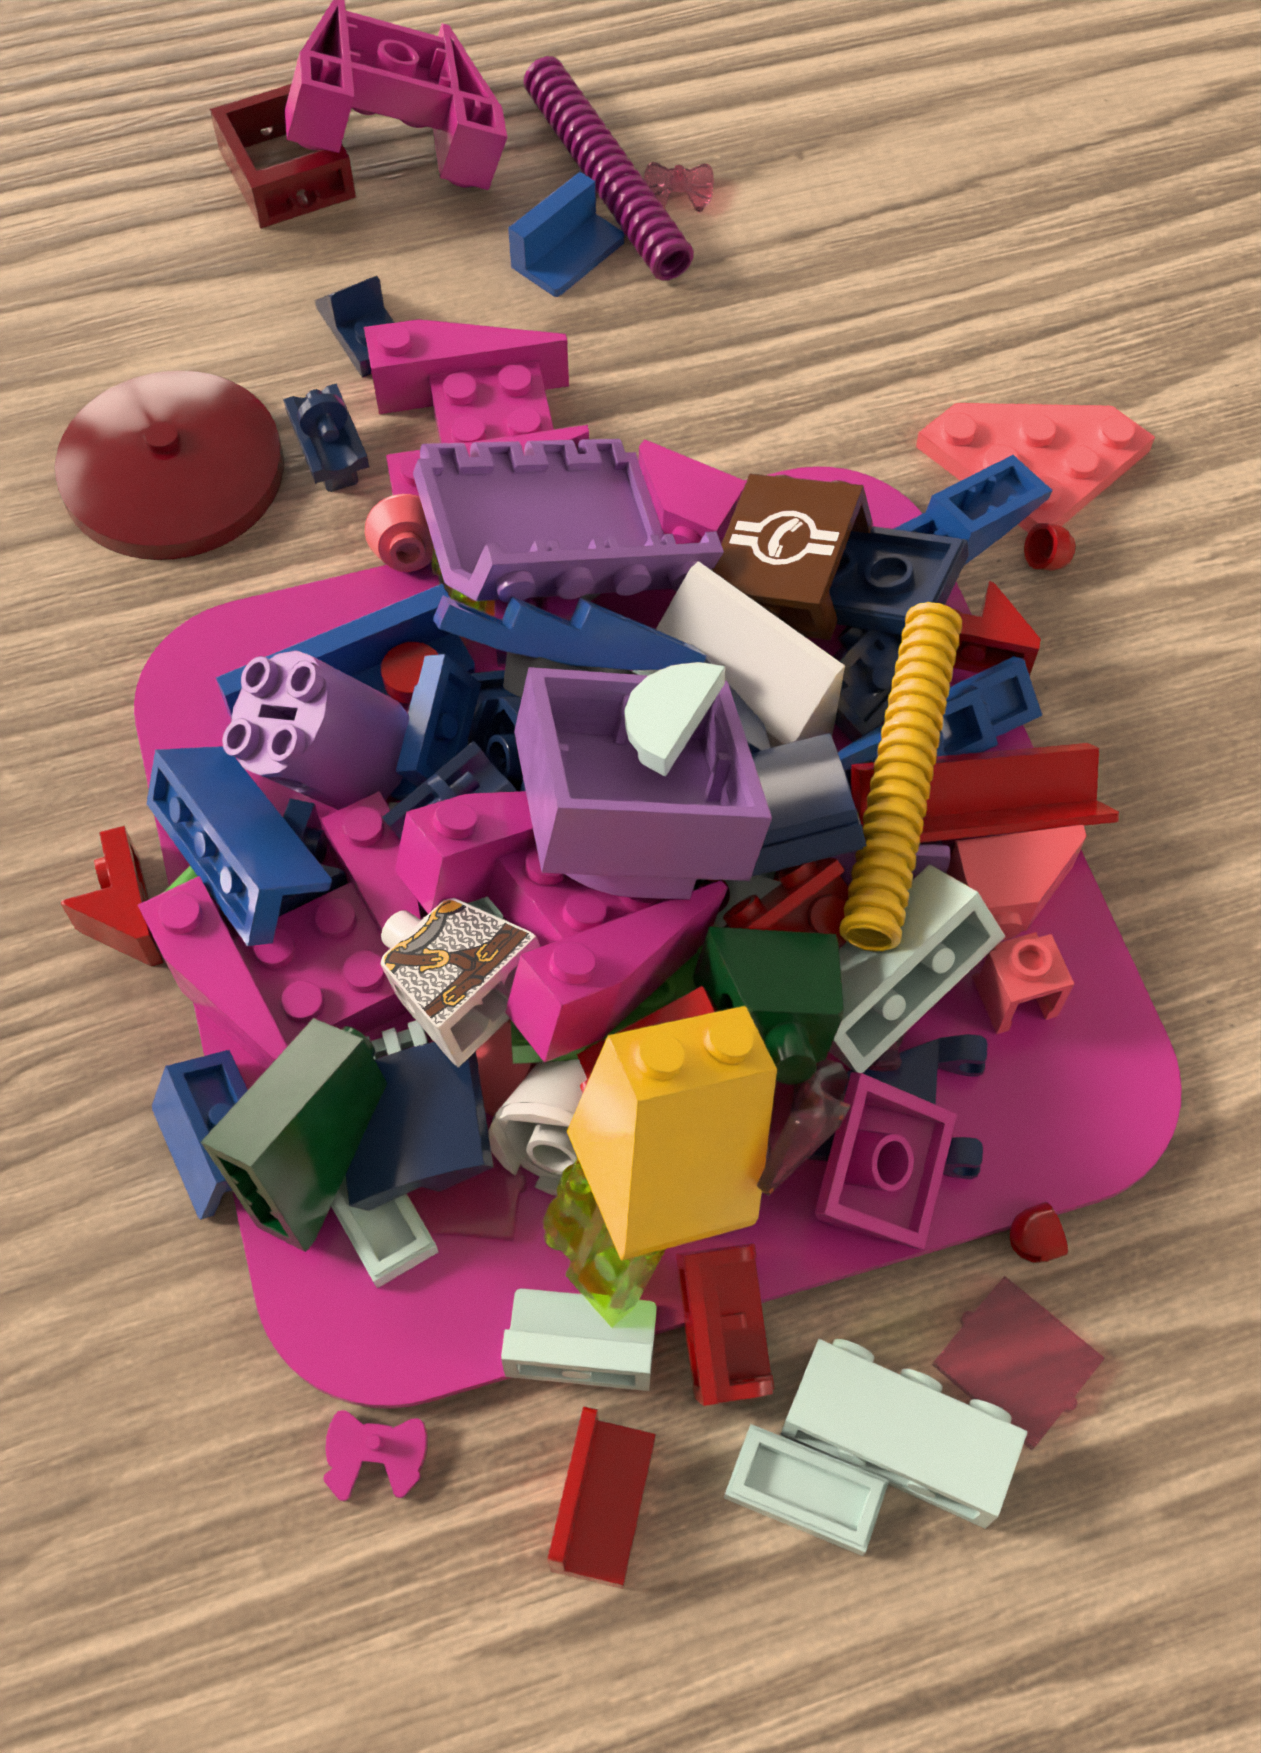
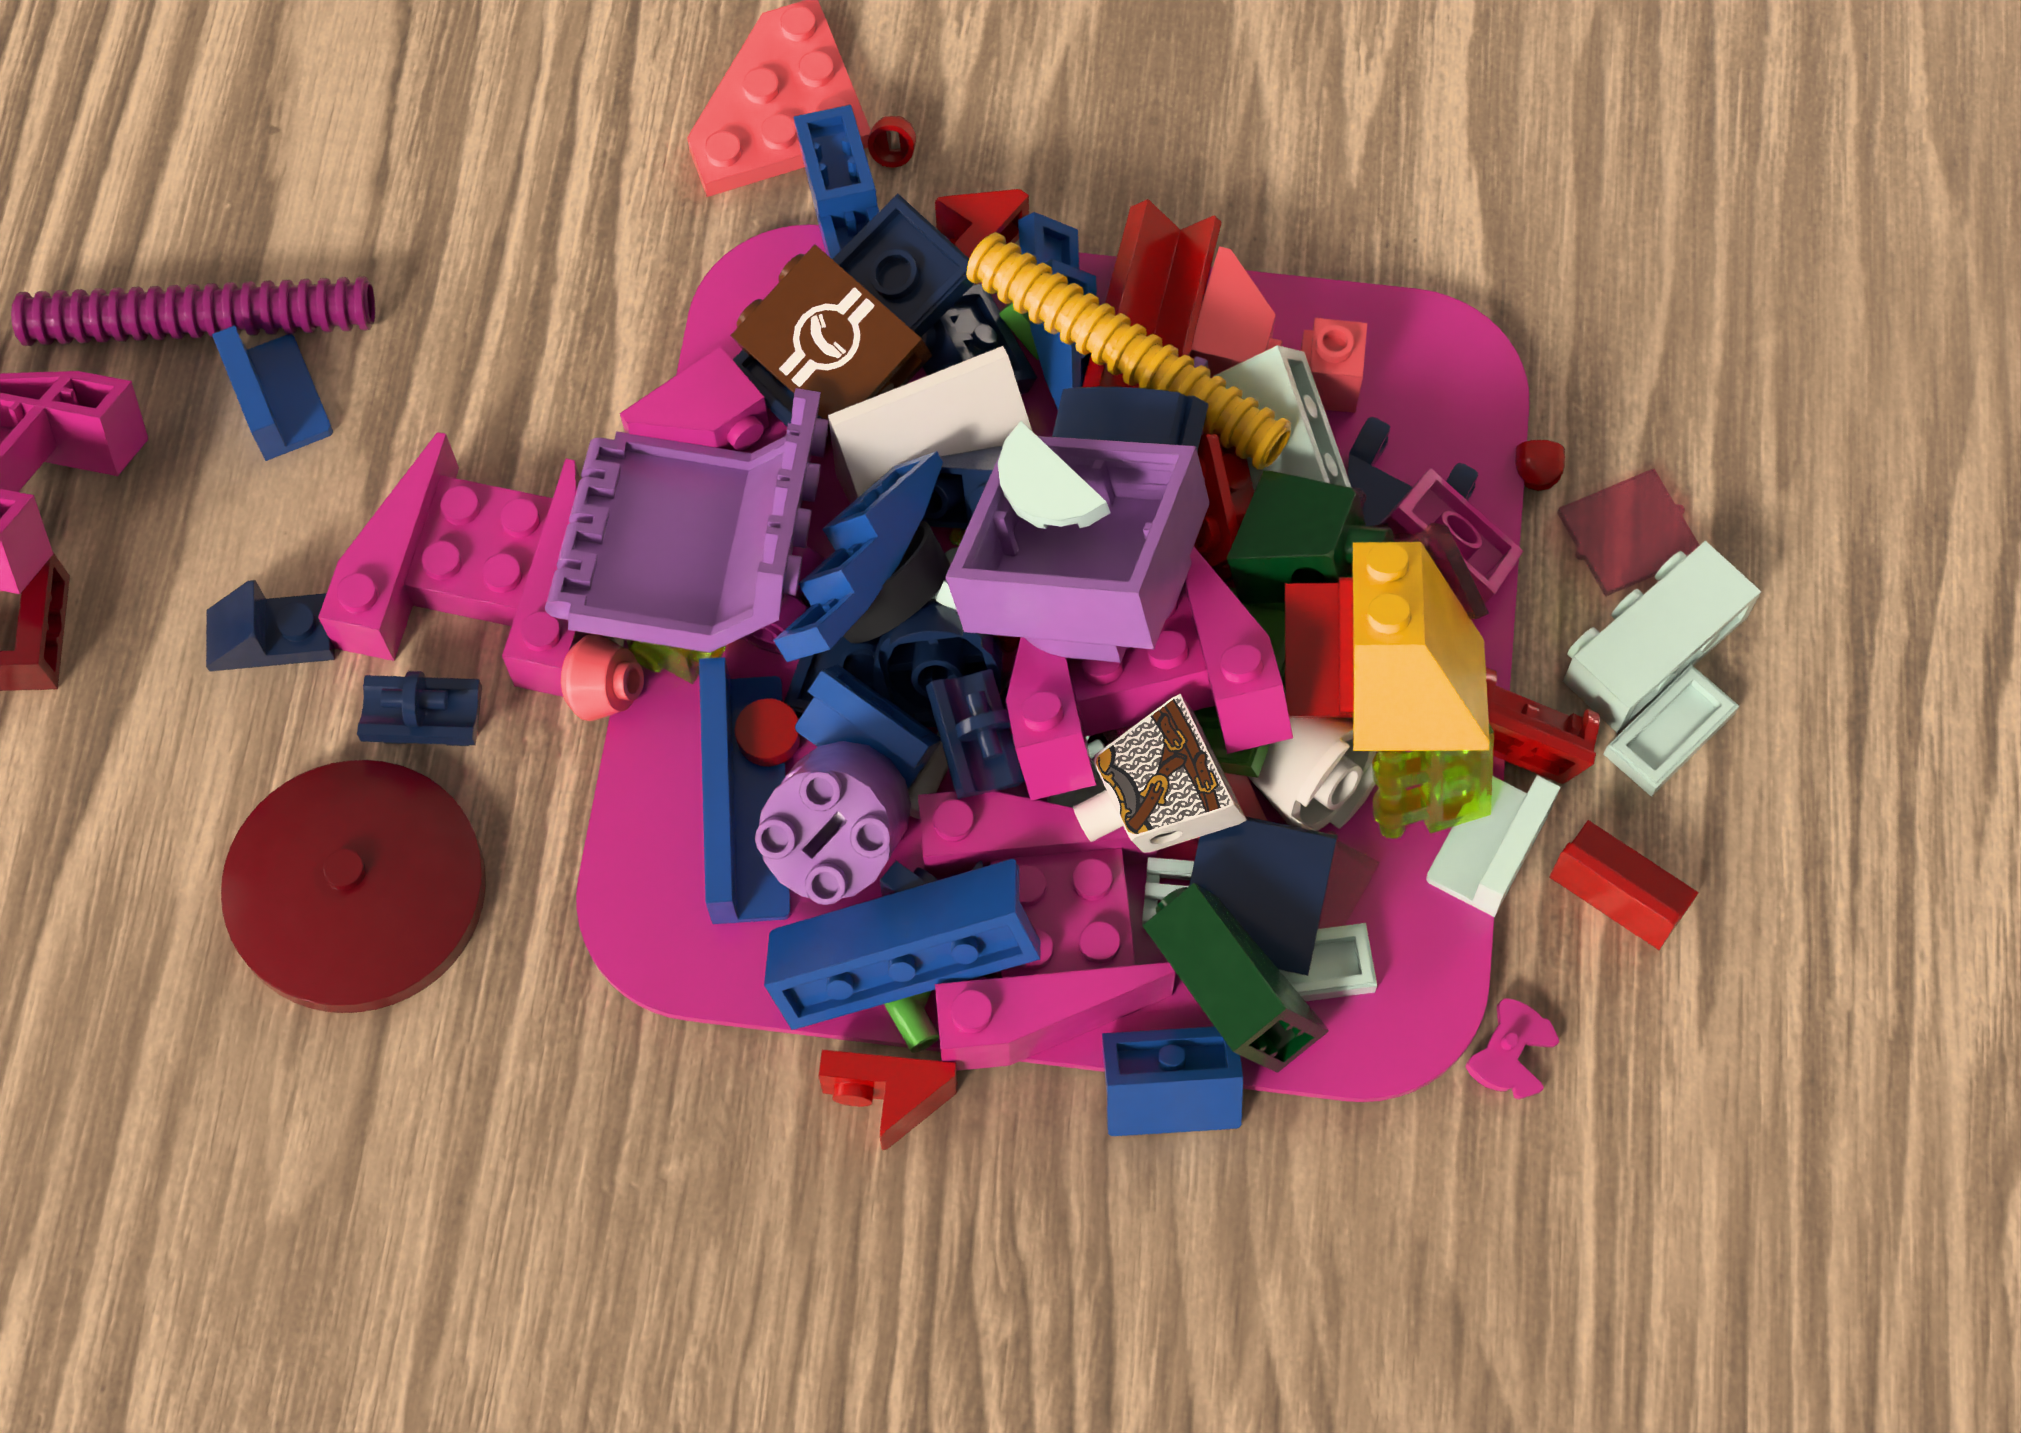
camera: 65 degrees left, 5 degrees up
(696, 183) = (259, 239): clear pink piece -> none

